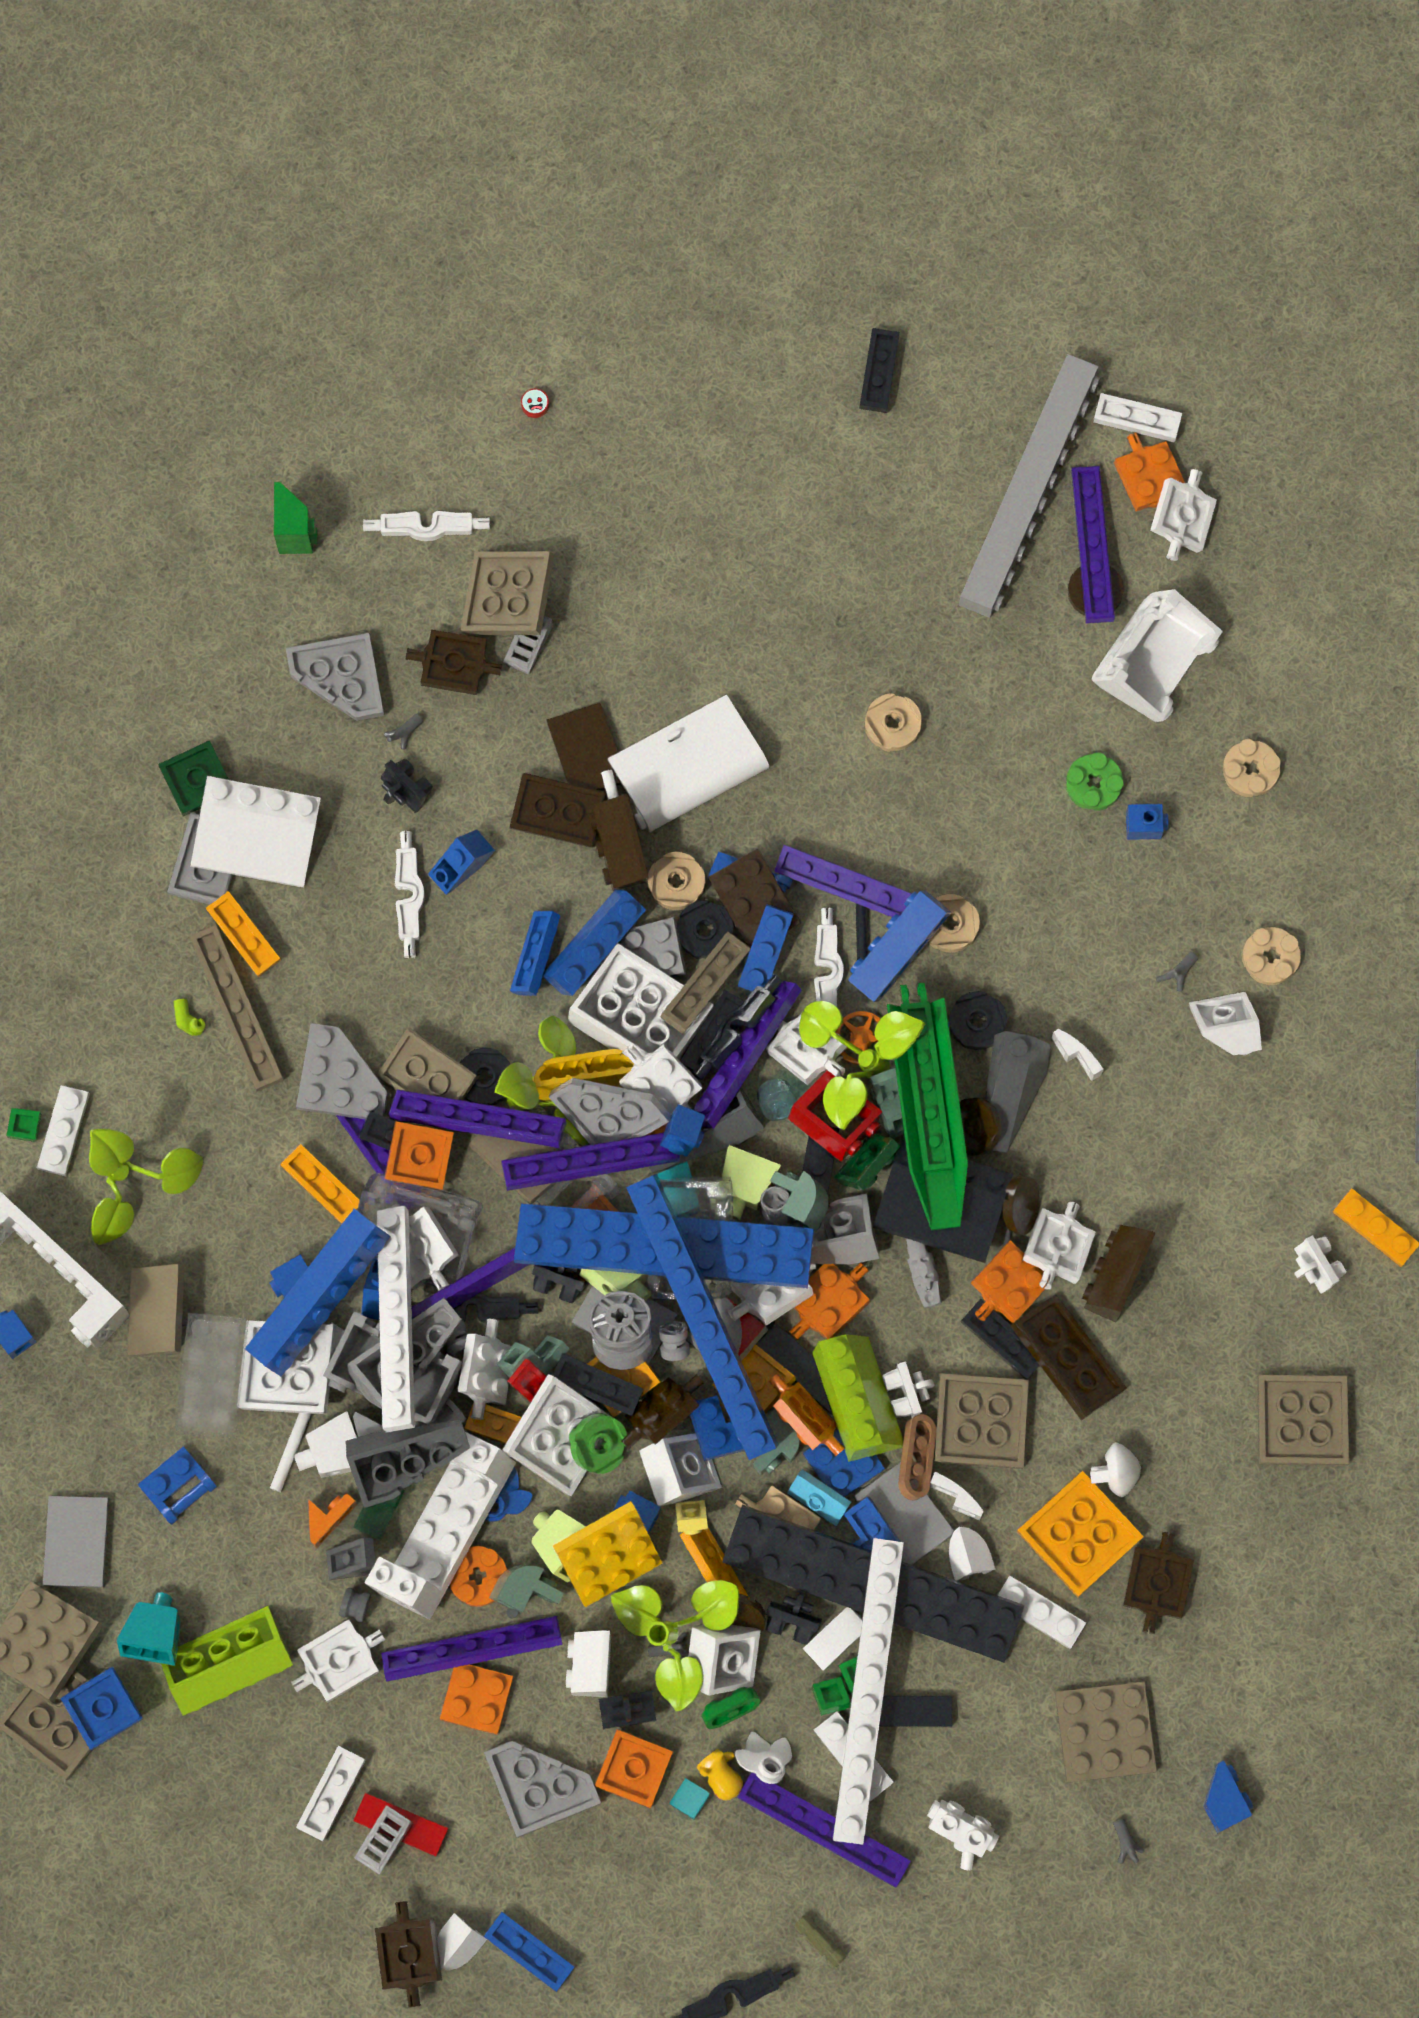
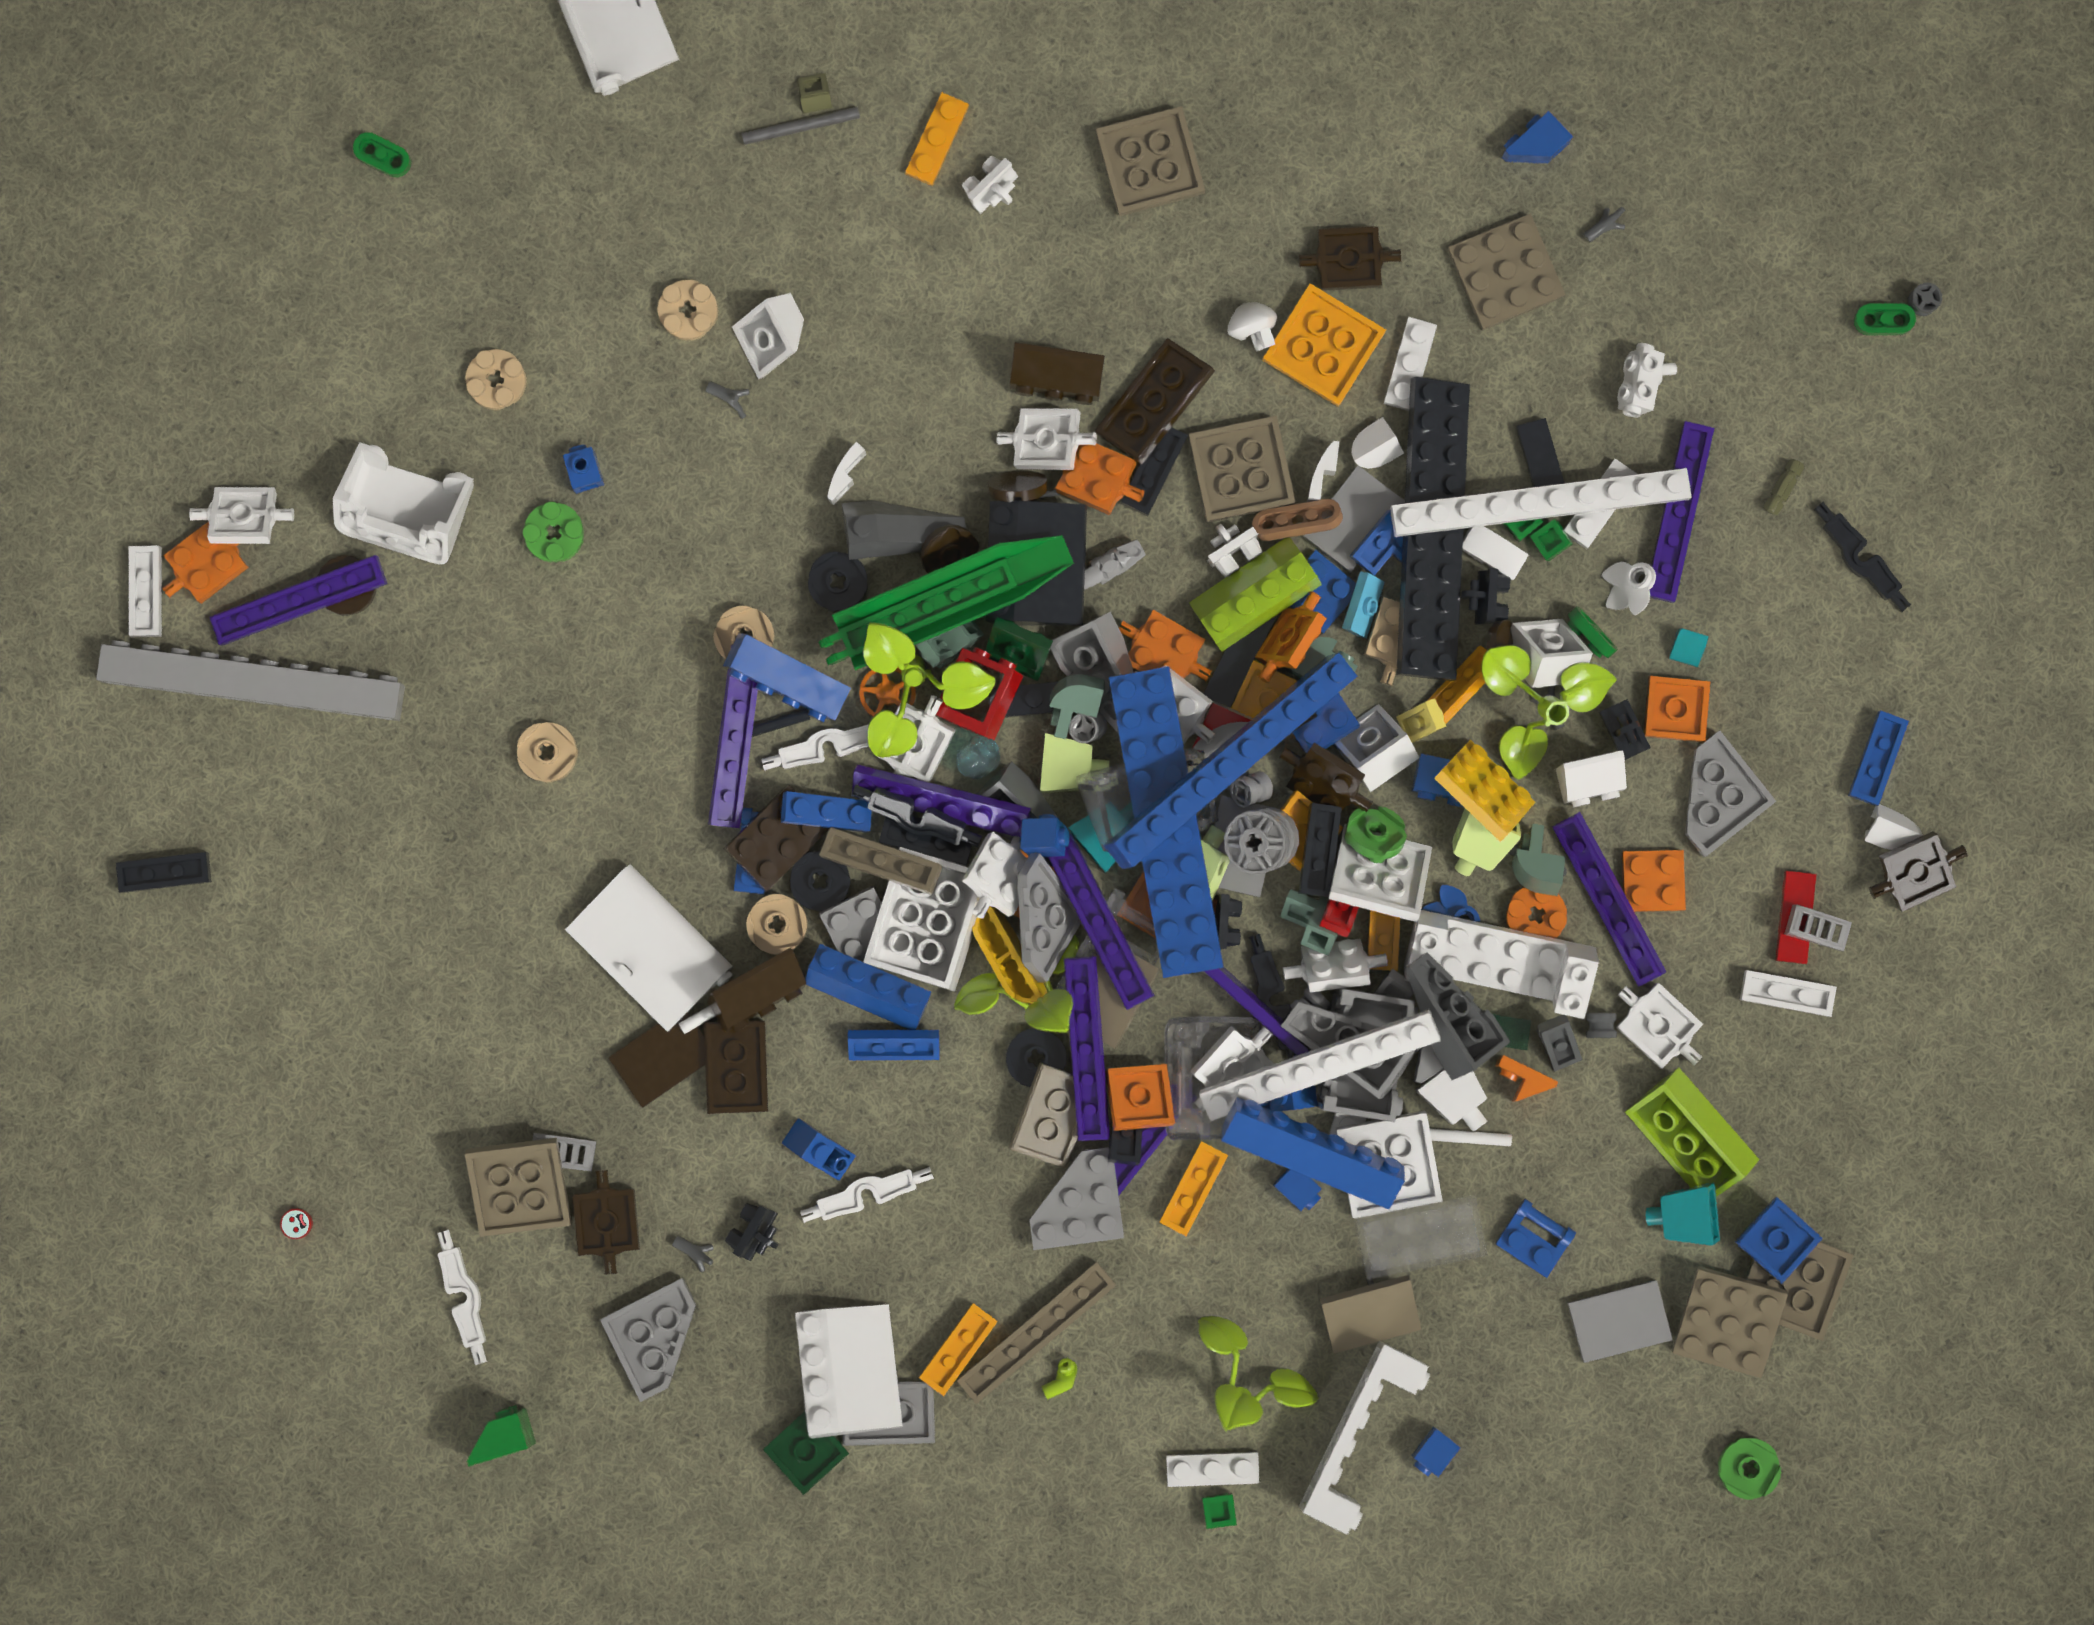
camera: 105 degrees left, 10 degrees up
(721, 1777) = (1659, 624): yellow animal -> none

